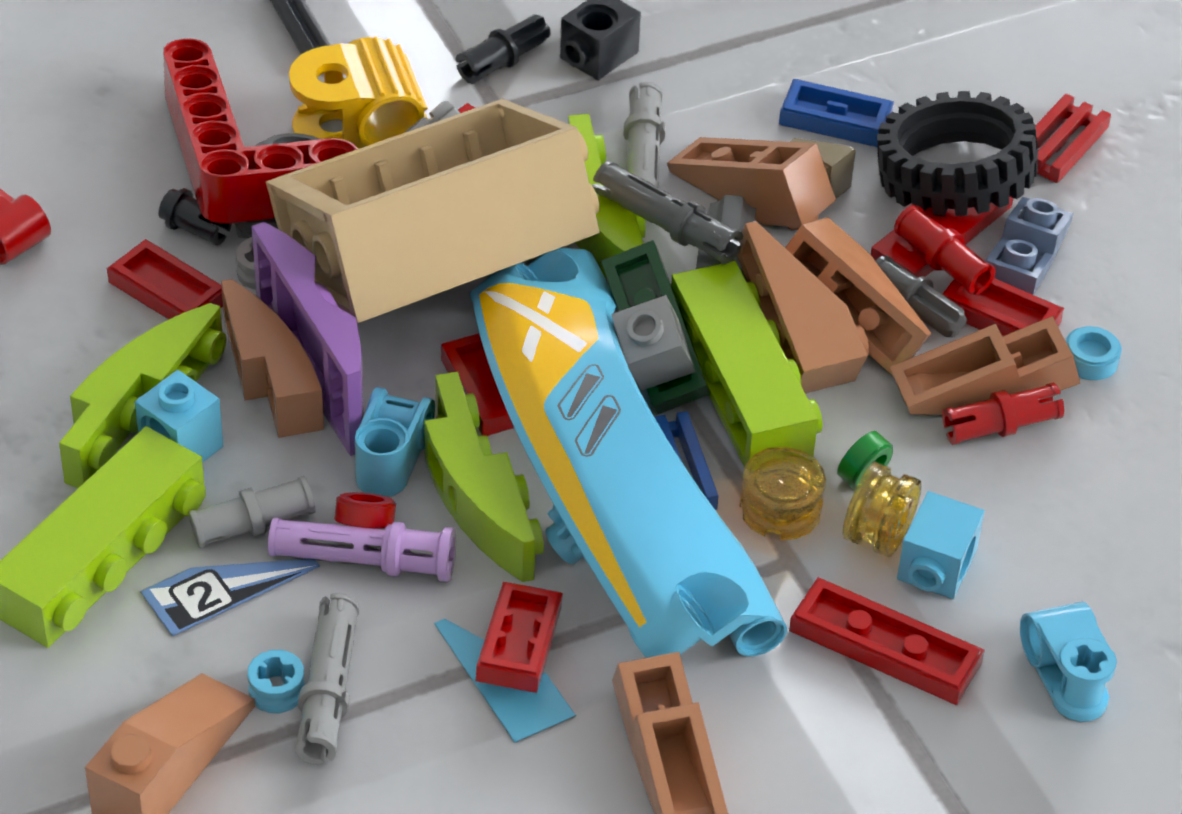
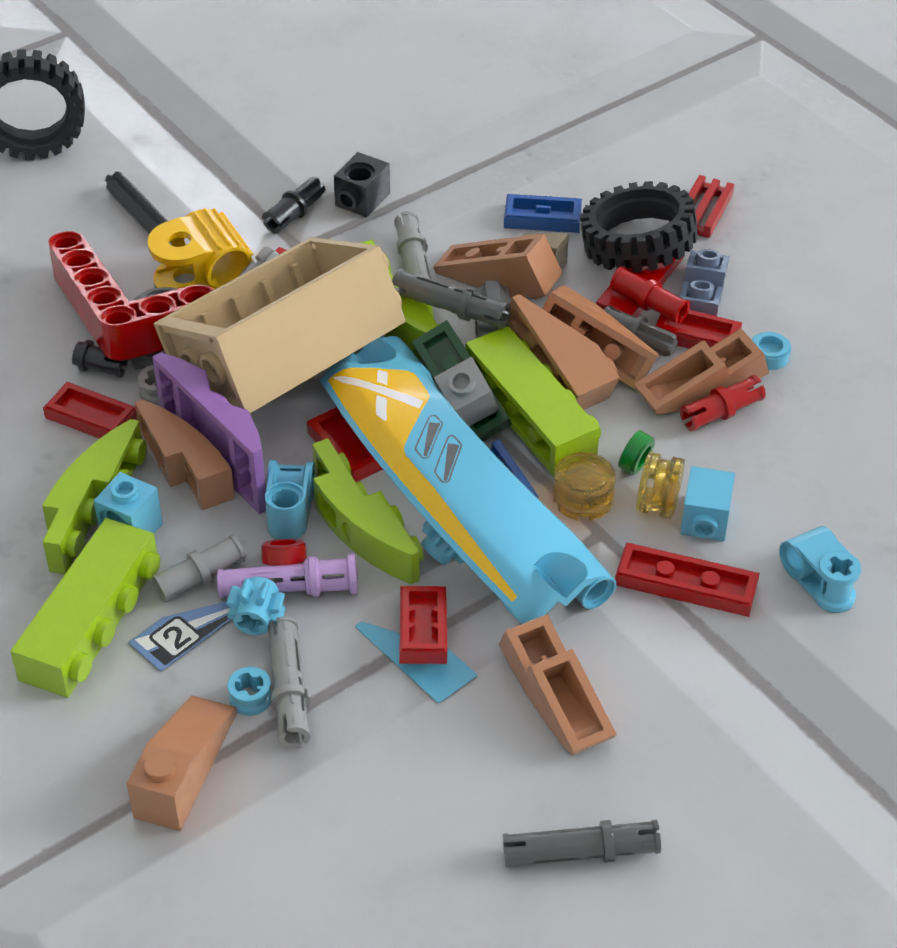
camera: 10 degrees left, 0 degrees up
(309, 572) = (255, 605): none -> medium azure gear

